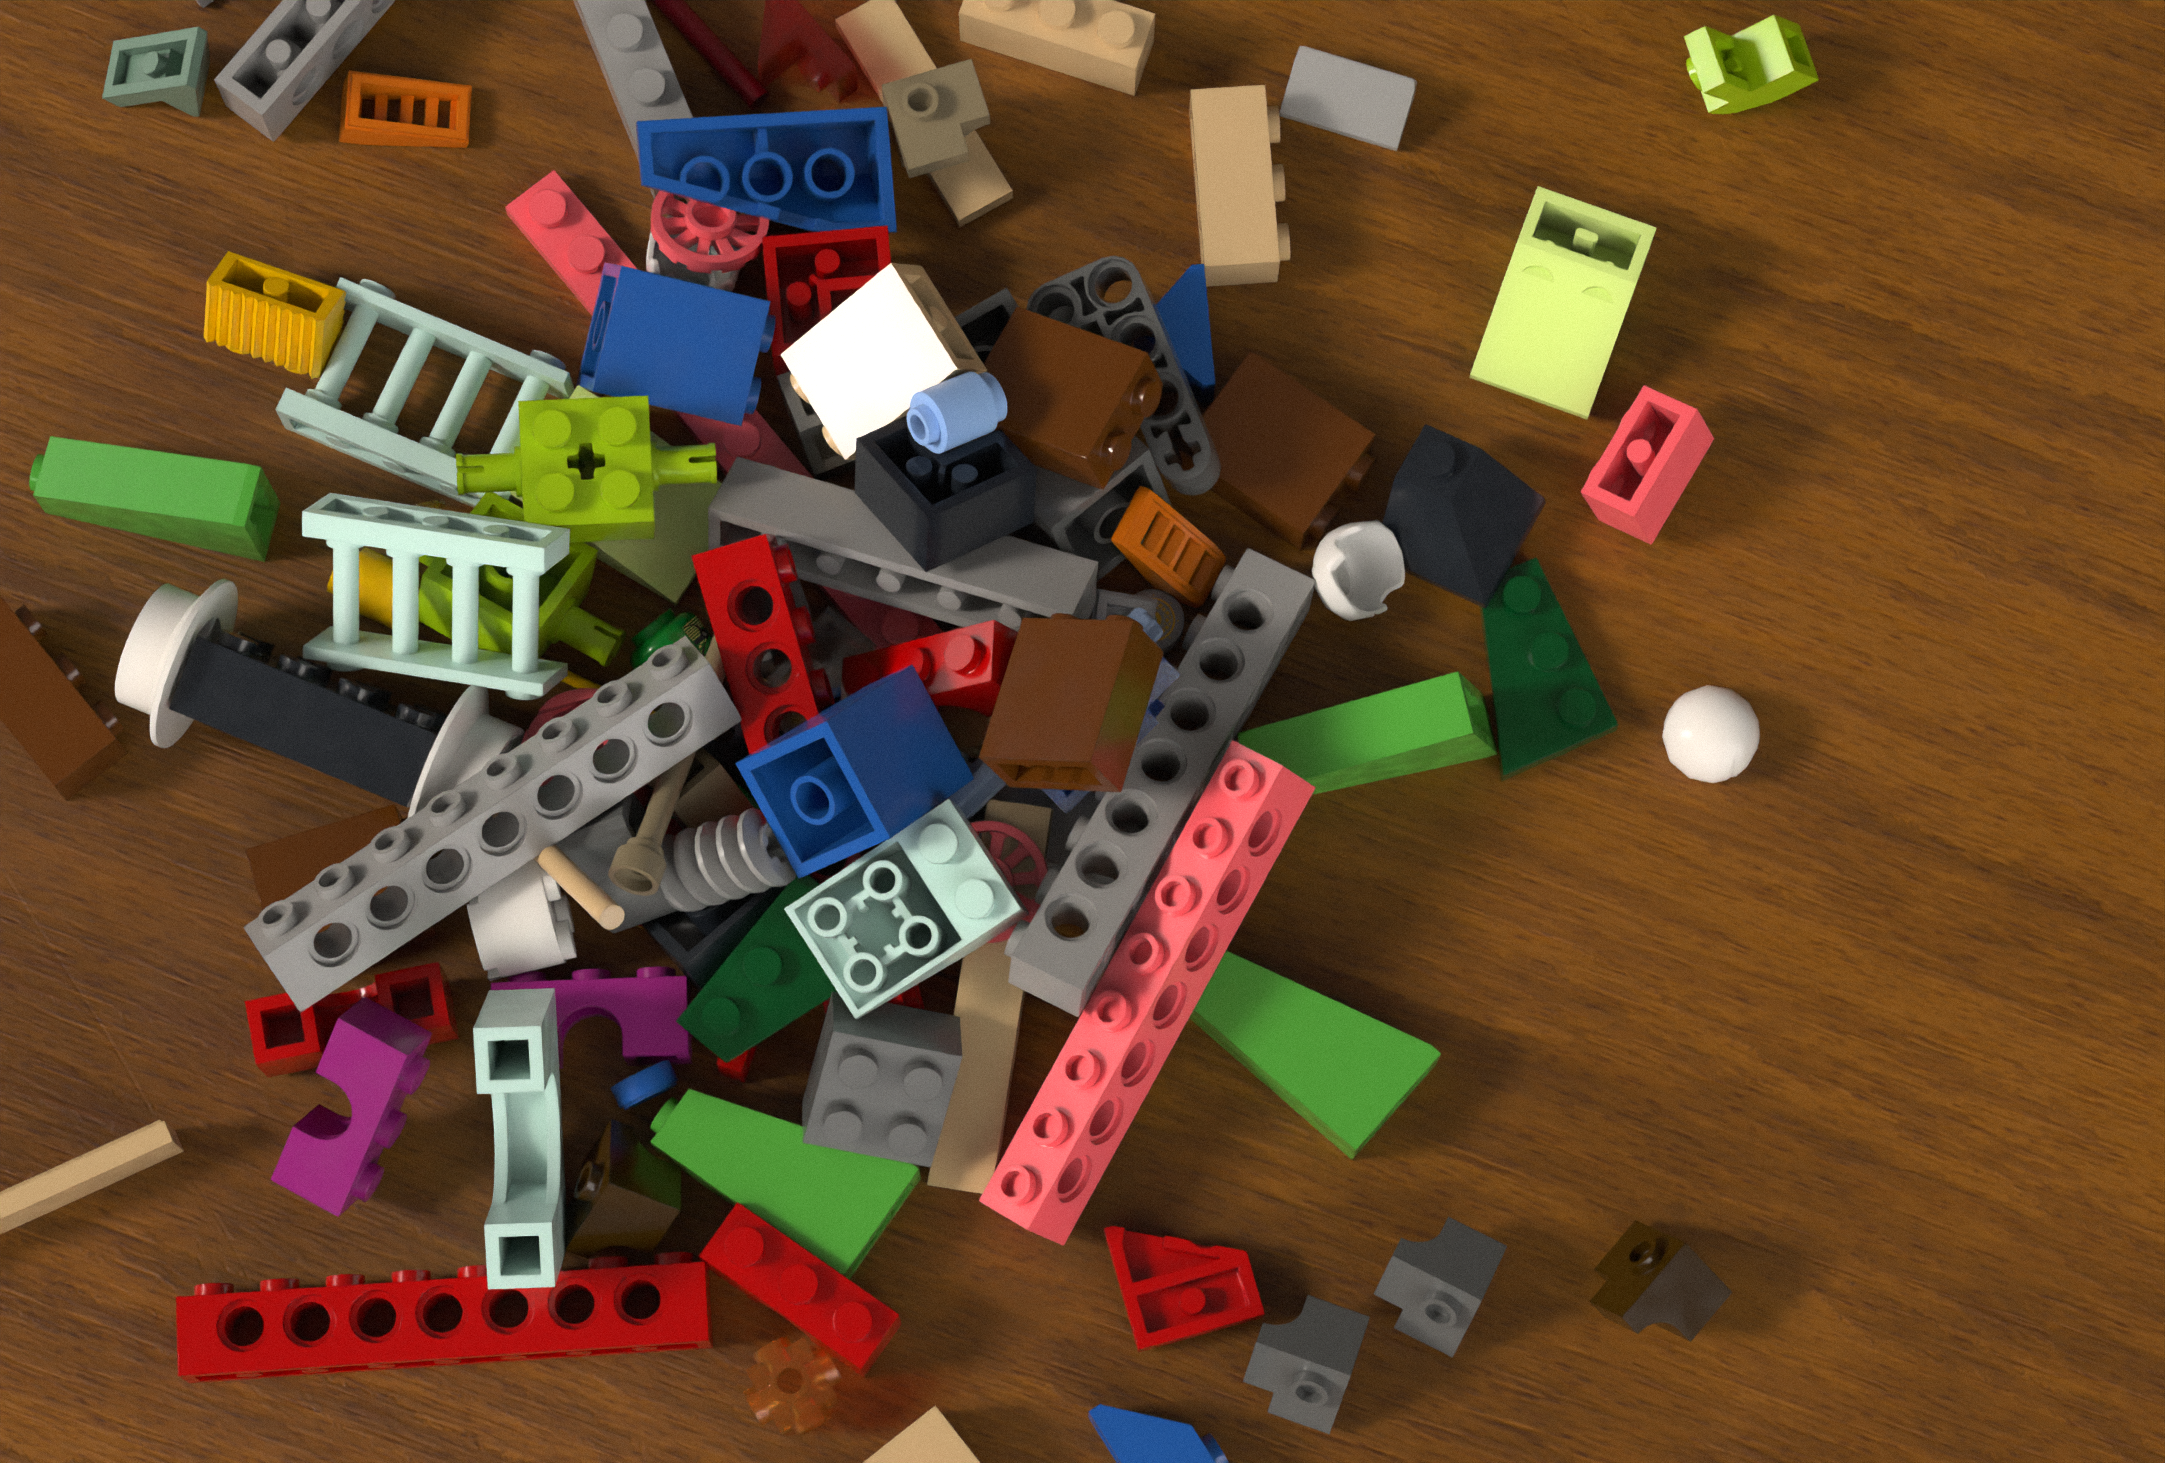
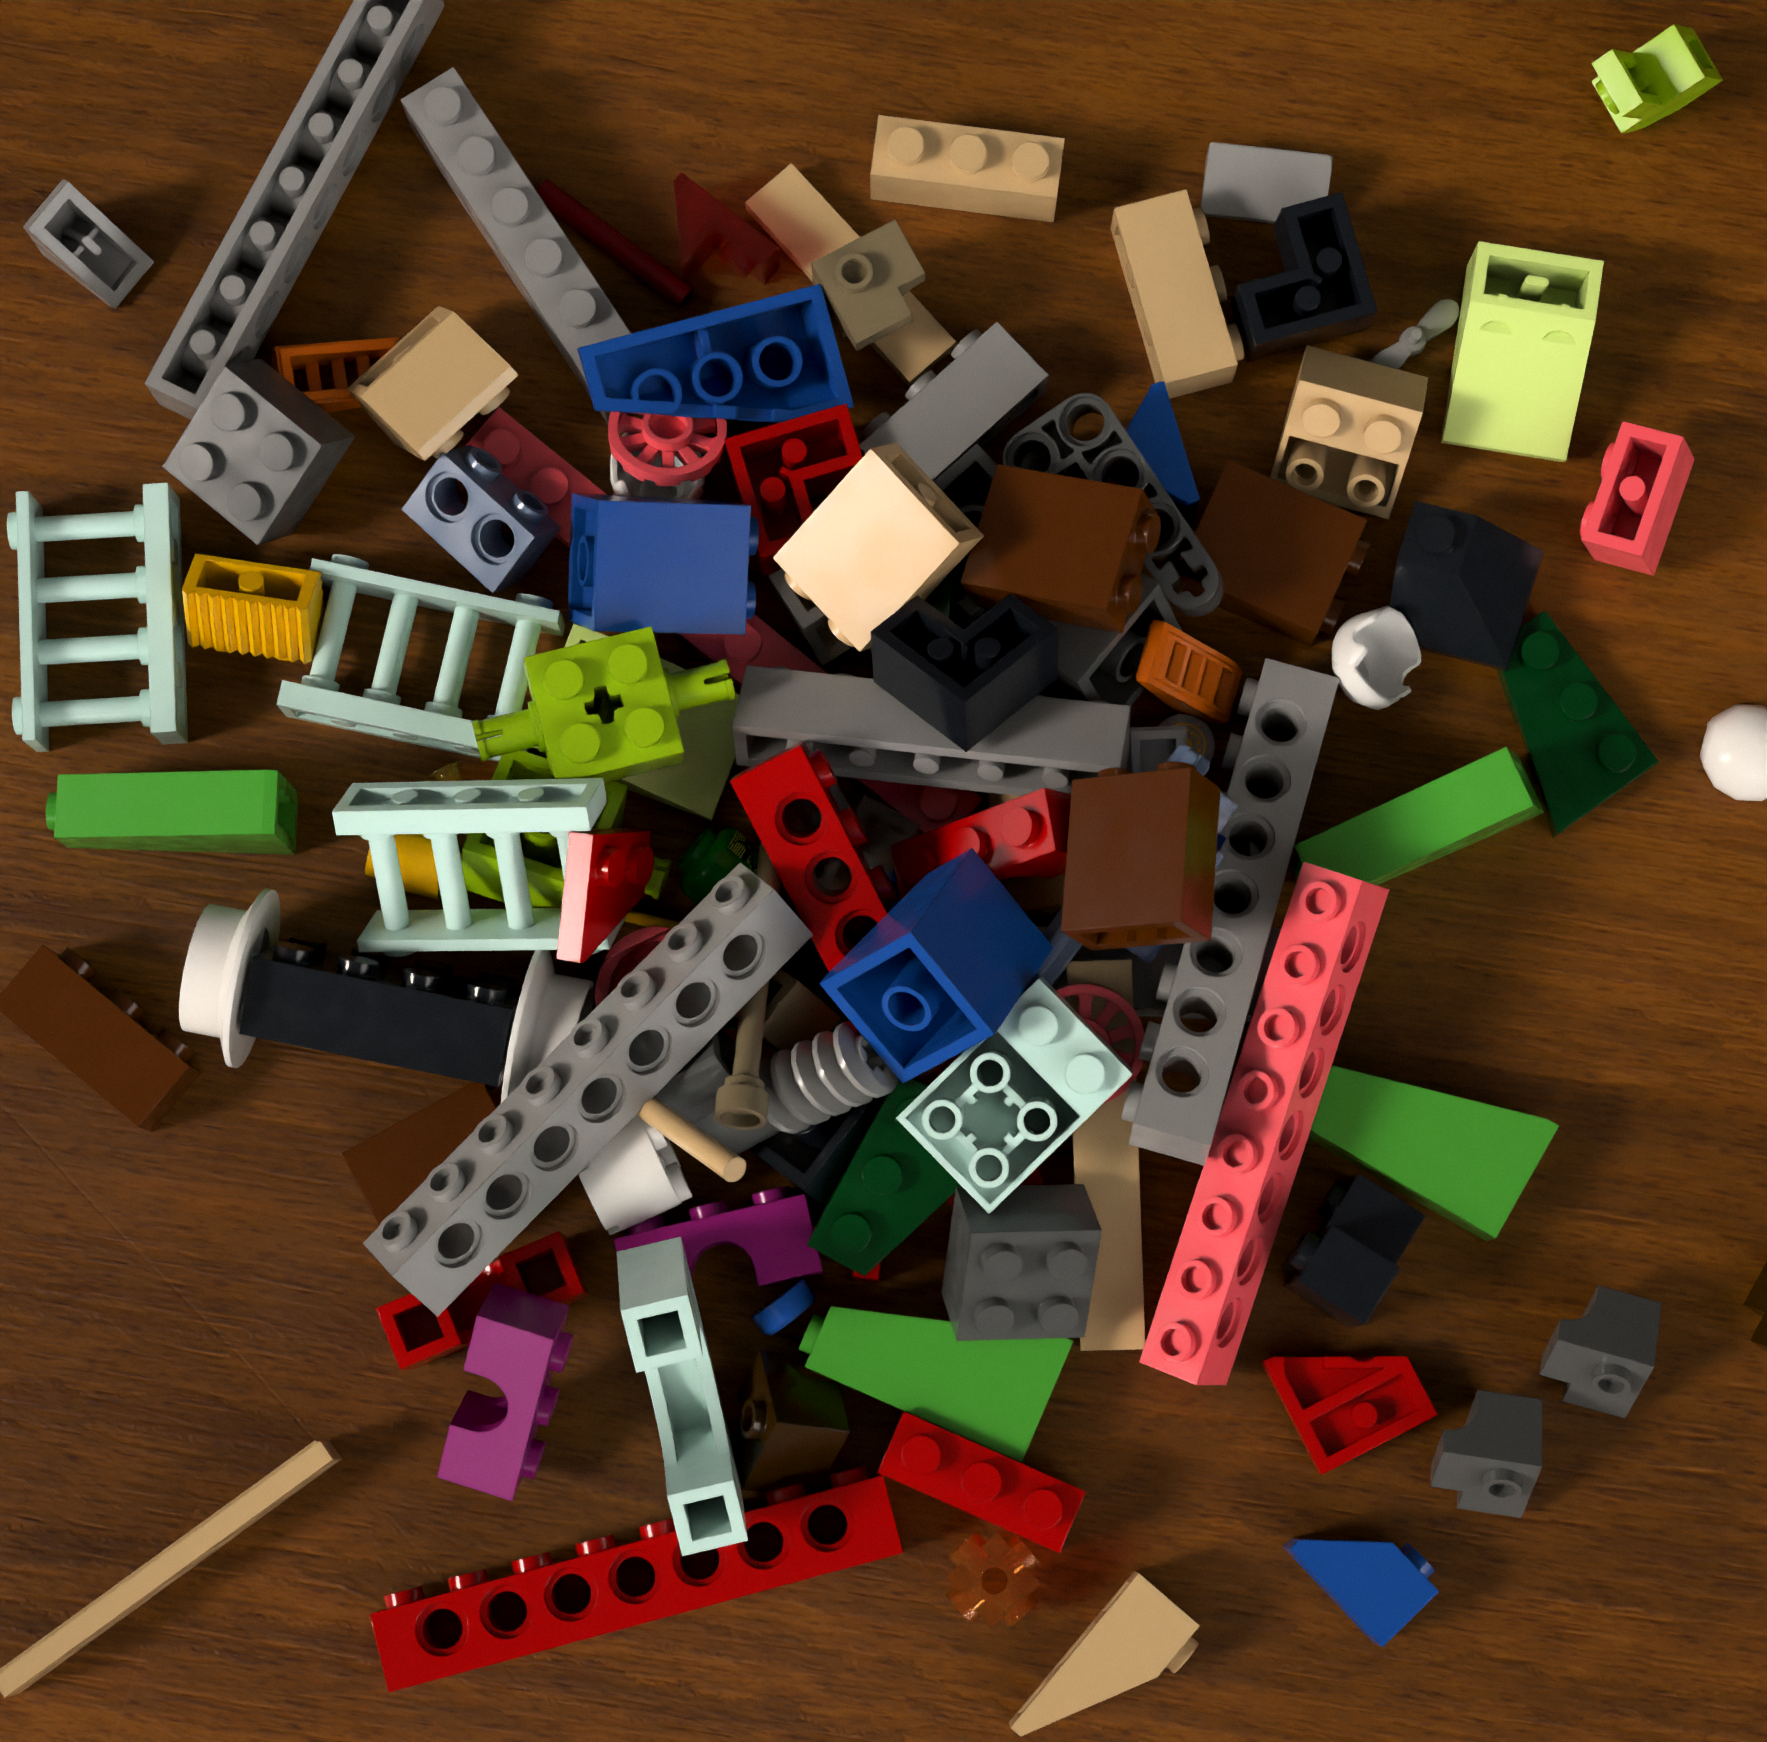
camera: 10 degrees left, 5 degrees up
(160, 68) = (85, 381): sand green slope -> none
(174, 334) = (157, 645): none -> light aqua fence
(310, 166) = (258, 451): none -> dark grey brick
(492, 134) = (433, 384): none -> tan slope
(505, 281) = (475, 530): none -> sand blue brick
(546, 633) = (601, 886): none -> red wing
(956, 411) = (966, 585): light blue brick -> none
(1011, 248) = (963, 404): none -> light grey brick
(1212, 1136) = (1354, 1252): none -> black brick
(1371, 212) = (1322, 285): none -> black brick
(1378, 347) = (1349, 431): none -> tan slope
(1462, 274) = (1413, 339): none -> light grey piece

